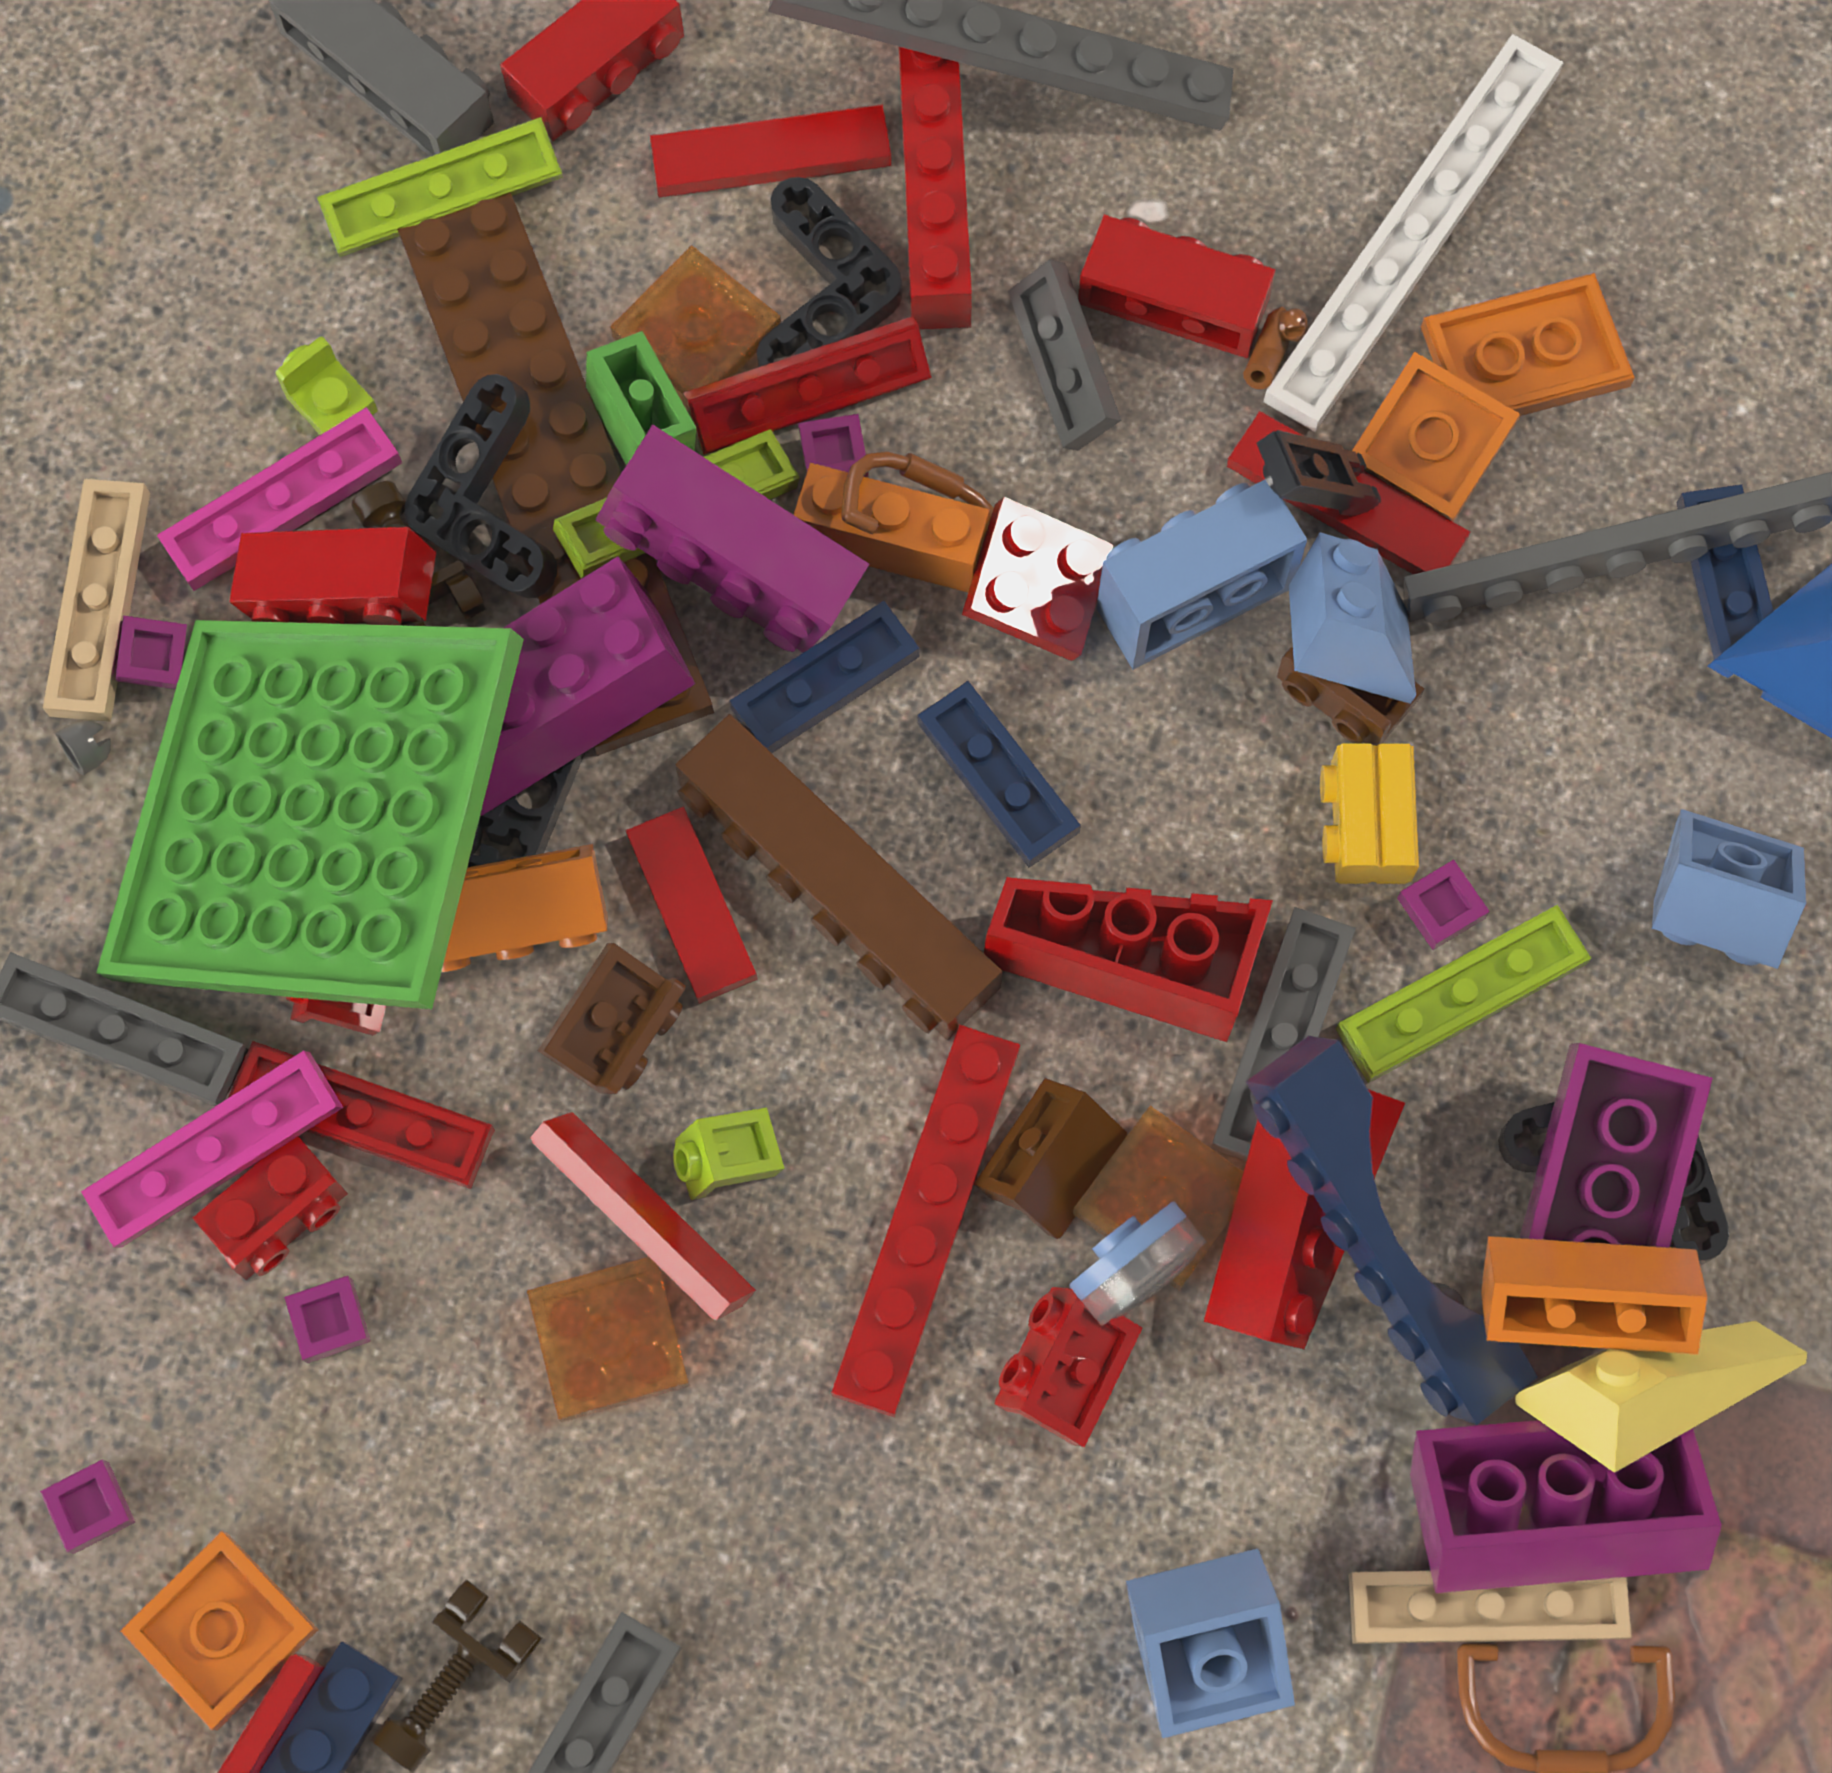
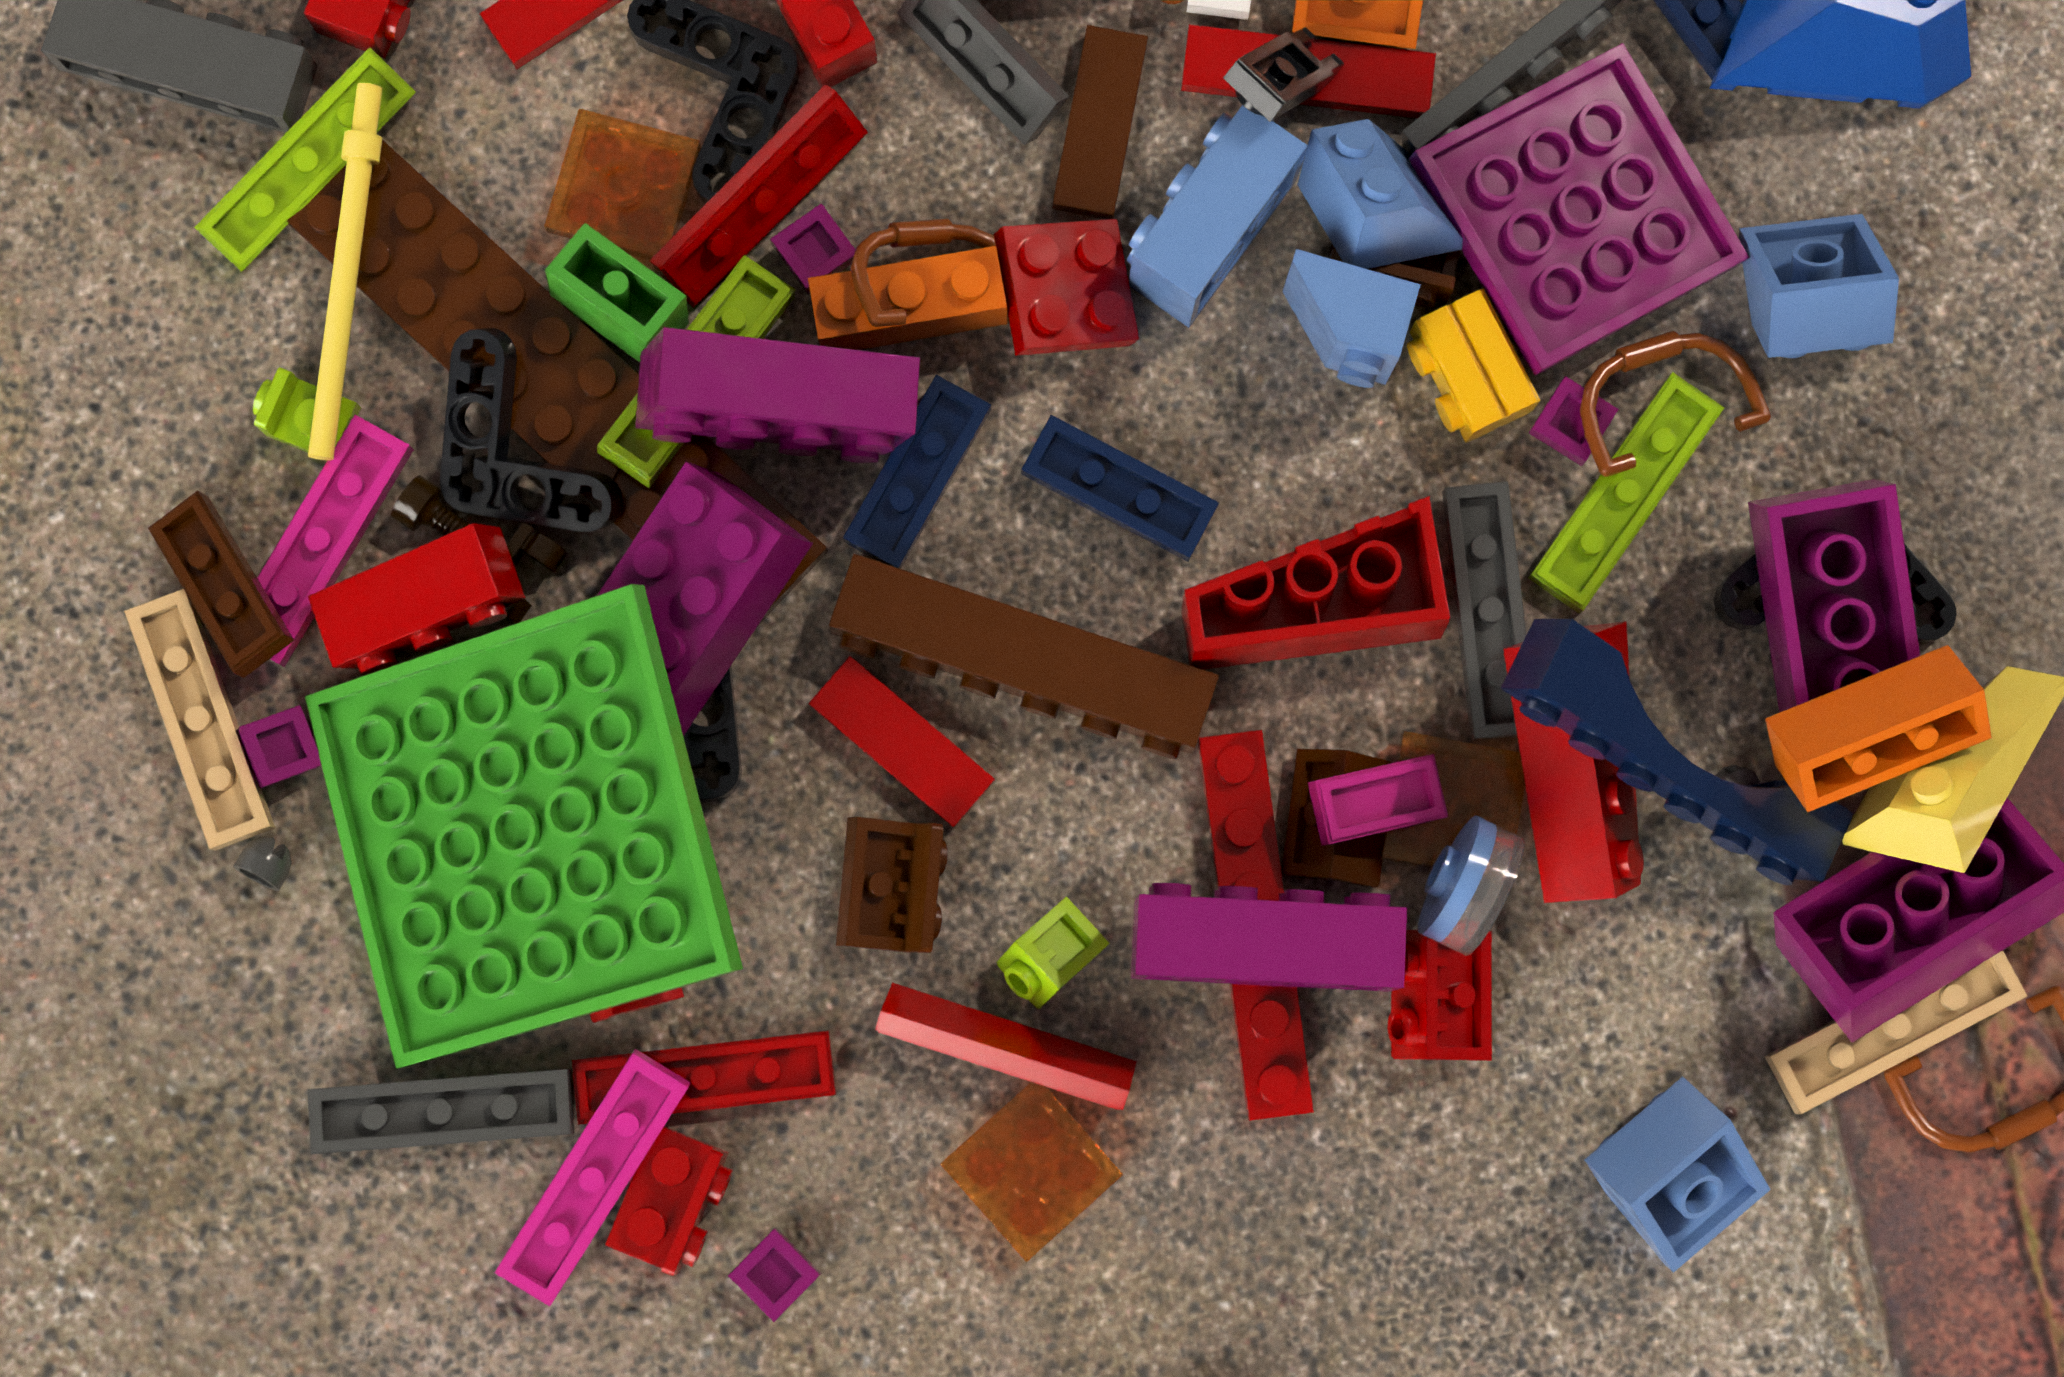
camera: 30 degrees left, 10 degrees up
(176, 494) = (221, 584): none -> reddish brown tile
(486, 197) = (361, 151): none -> light yellow bar
(527, 903) = (766, 813): orange brick -> none
(920, 1220) = (1269, 941): none -> magenta brick
(1092, 1149) = (1377, 799): none -> dark pink tile
(1139, 459) = (1100, 122): none -> reddish brown tile
(1283, 714) = (1351, 315): none -> medium blue slope
(1537, 719) = (1579, 208): none -> magenta plate
(1549, 877) = (1649, 352): none -> dark orange piece

